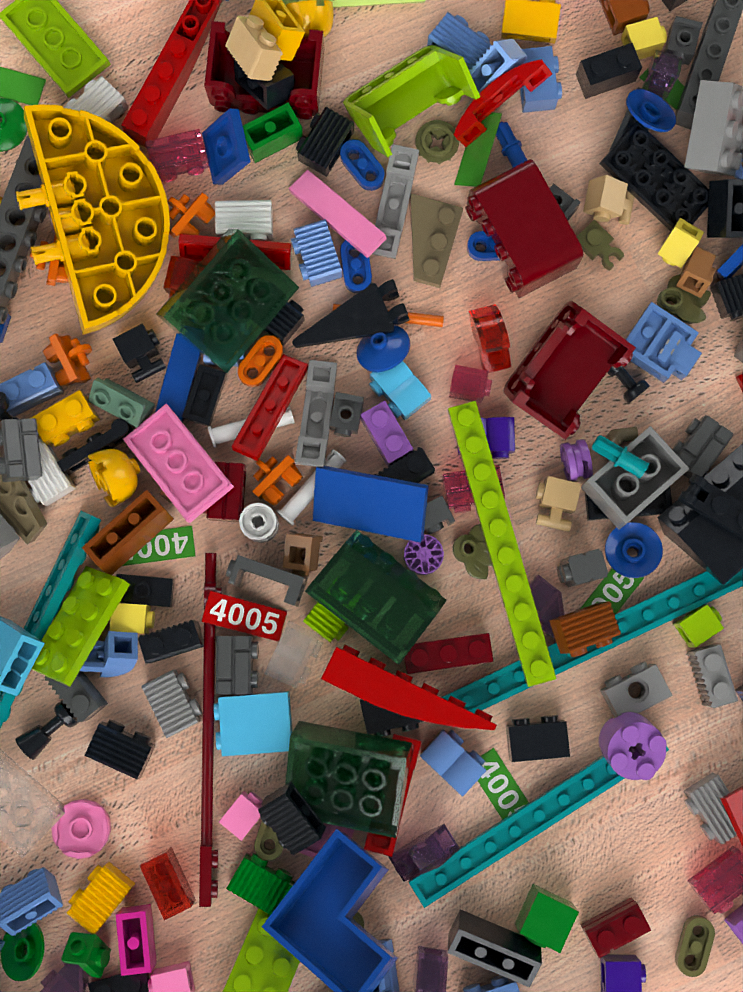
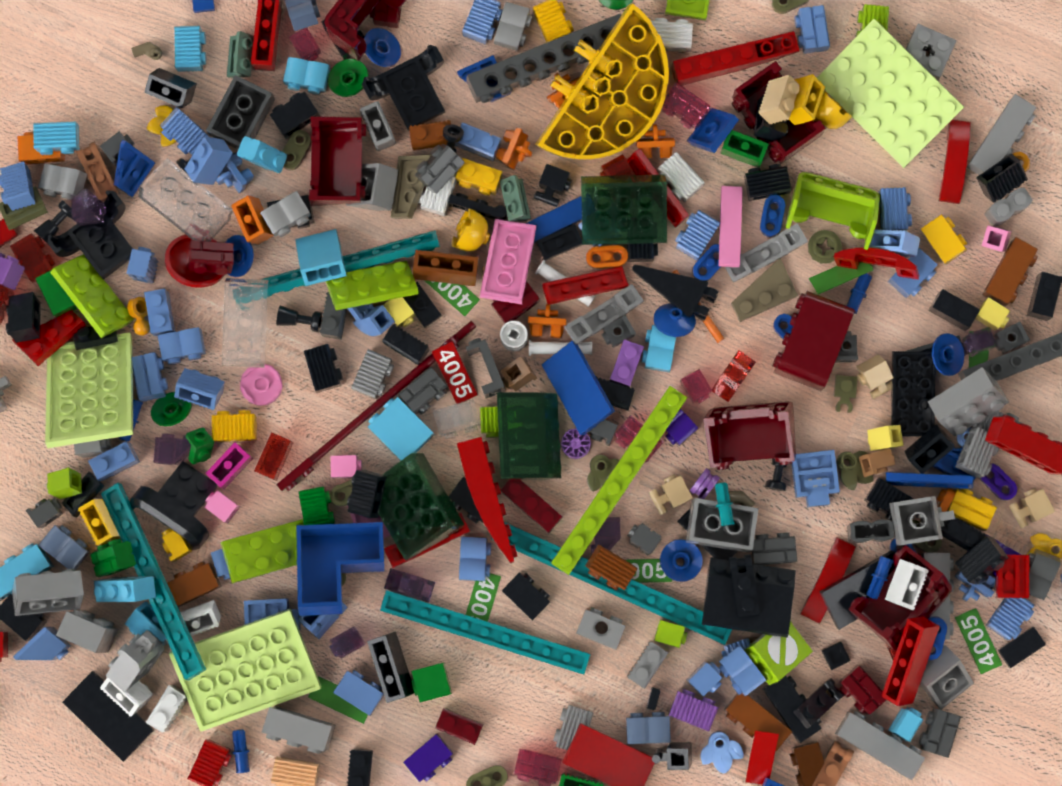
camera: 55 degrees right, 0 degrees up
(647, 745) = (572, 637): medium lavender brick -> none

